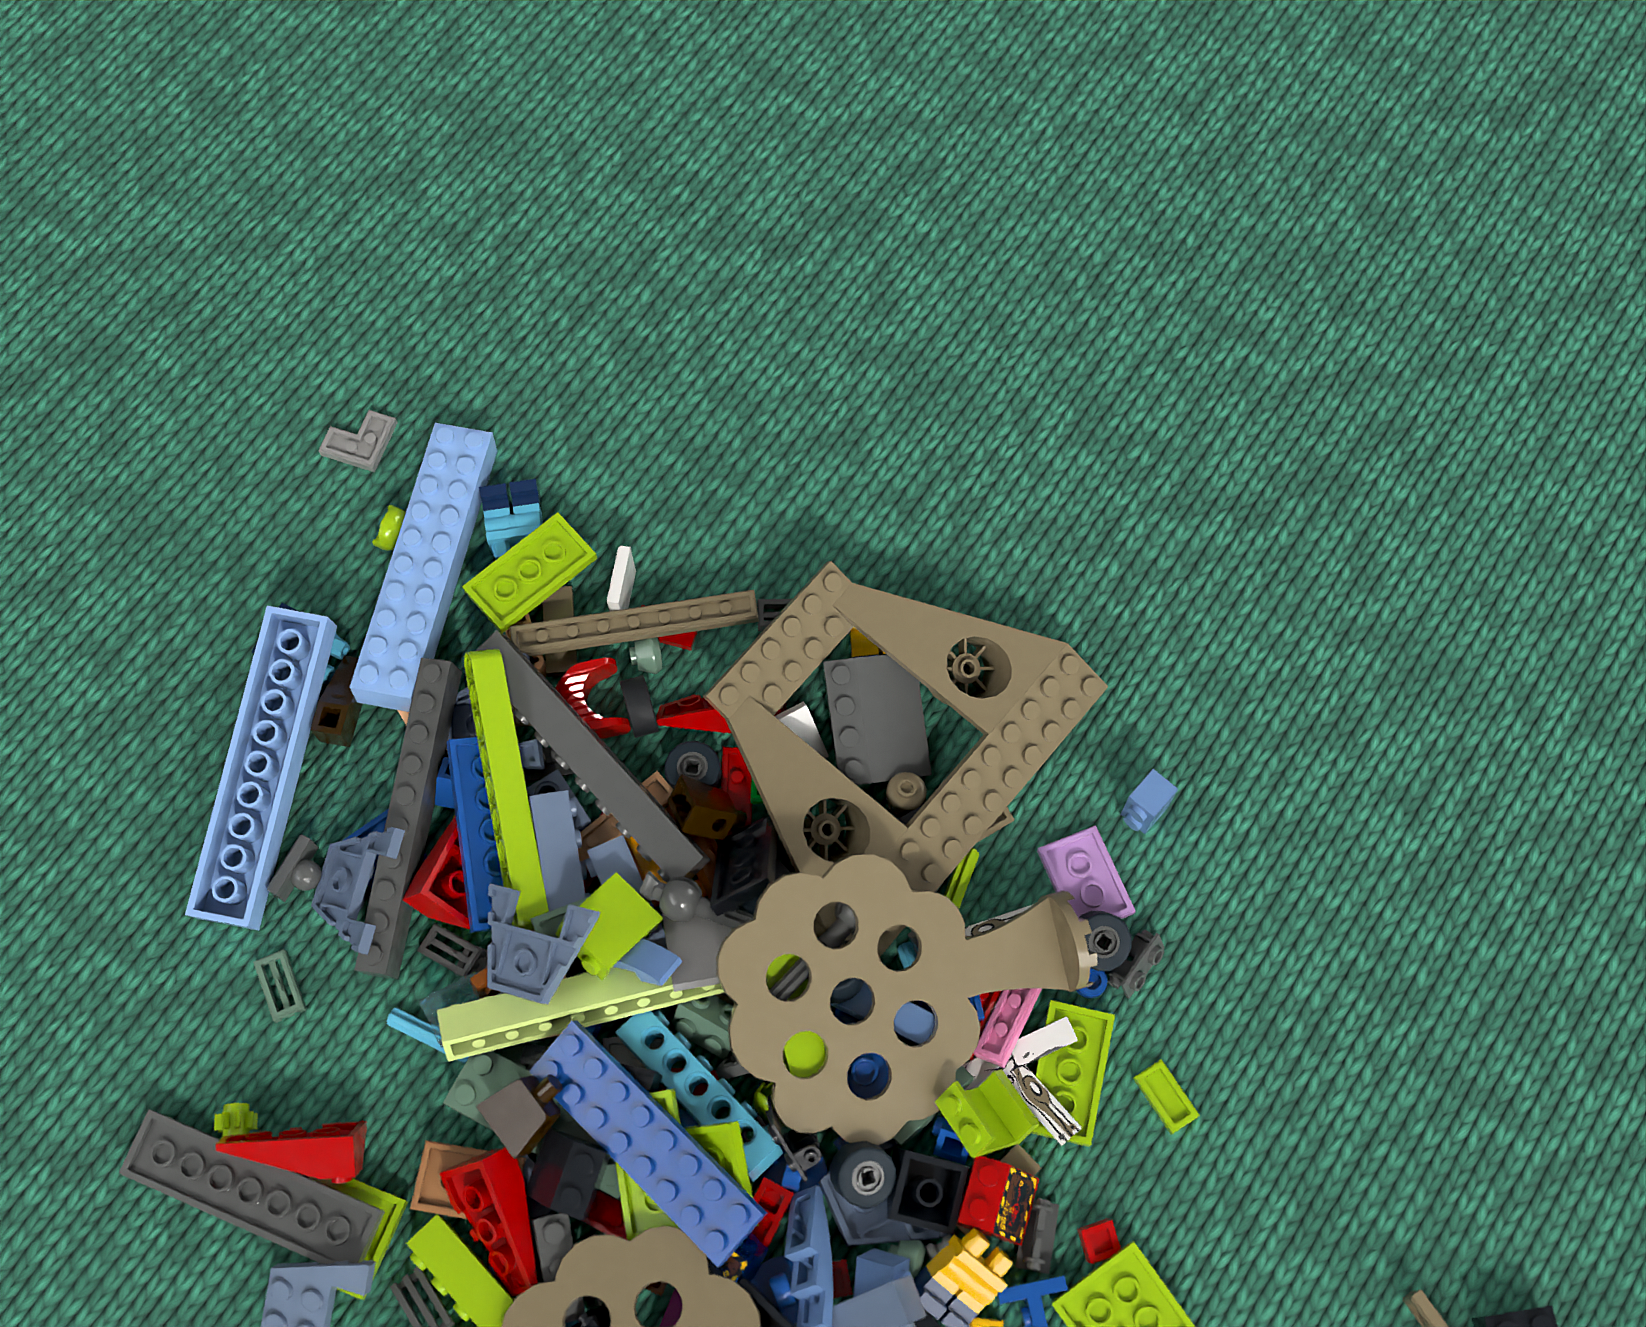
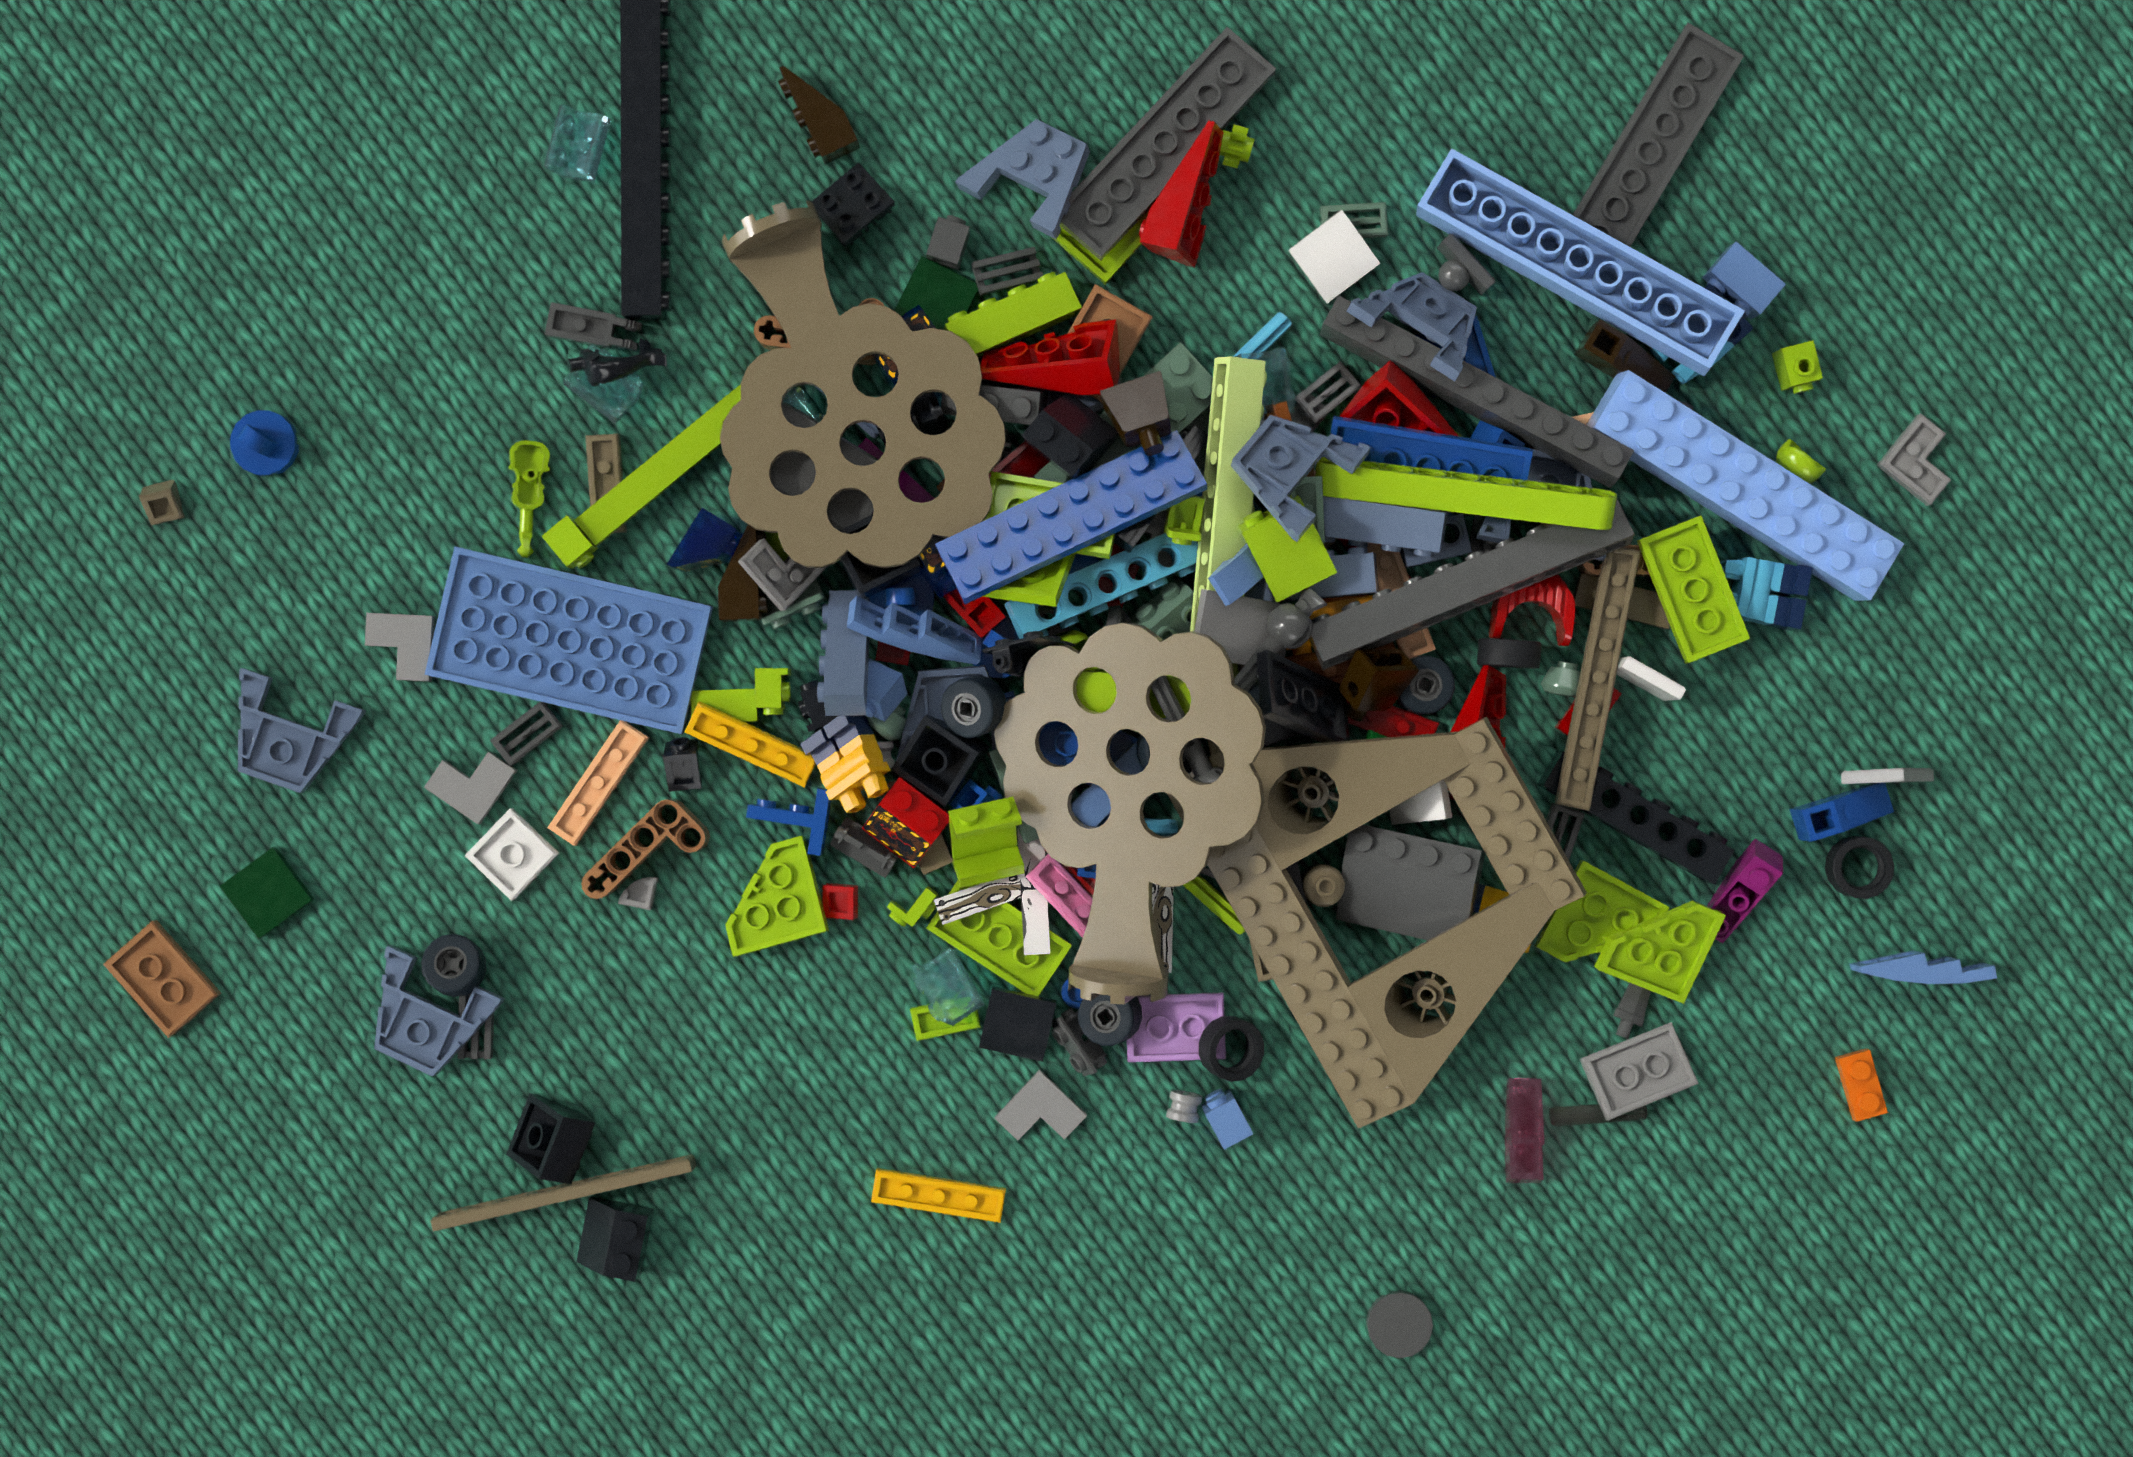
camera: 105 degrees right, 20 degrees up
(125, 742) = (1658, 134): none -> dark grey plate
(239, 627) = (1744, 280): none -> medium blue brick
(306, 558) = (1797, 367): none -> lime brick
(318, 990) = (1334, 256): none -> white tile
(616, 1033) = (1184, 521): none -> lime bracket
(636, 369) = (1893, 775): none -> light grey tile
(682, 401) = (1841, 812): none -> blue slope
(718, 353) = (1884, 871): none -> black tyre
(758, 486) = (1705, 865): none -> black brick
(775, 454) = (1746, 885): none -> magenta slope
(789, 303) = (1914, 968): none -> medium blue slope
(837, 540) = (1604, 911): none -> lime plate
(851, 494) = (1664, 950): none -> lime plate
(901, 314) = (1861, 1085): none -> orange plate
(902, 506) = (1631, 1009): none -> dark grey bar
(961, 482) = (1638, 1071): none -> light grey tile
(1010, 503) = (1590, 1114): none -> clear smoke axle
(1051, 554) = (1524, 1131): none -> clear pink slope
(1072, 1157) = (922, 907): none -> lime bracket
(1084, 841) = (1253, 1054): none -> black tyre
(1138, 1102) = (947, 987): none -> clear light blue bracket
(1143, 1024) = (1017, 1023): none -> black slope
(1153, 845) = (1184, 1106): none -> light grey wheel
(1203, 977) = (1040, 1099): none -> light grey tile
(1259, 599) = (1399, 1324): none -> dark grey tile
(1332, 1042) = (938, 1195): none -> yellow tile

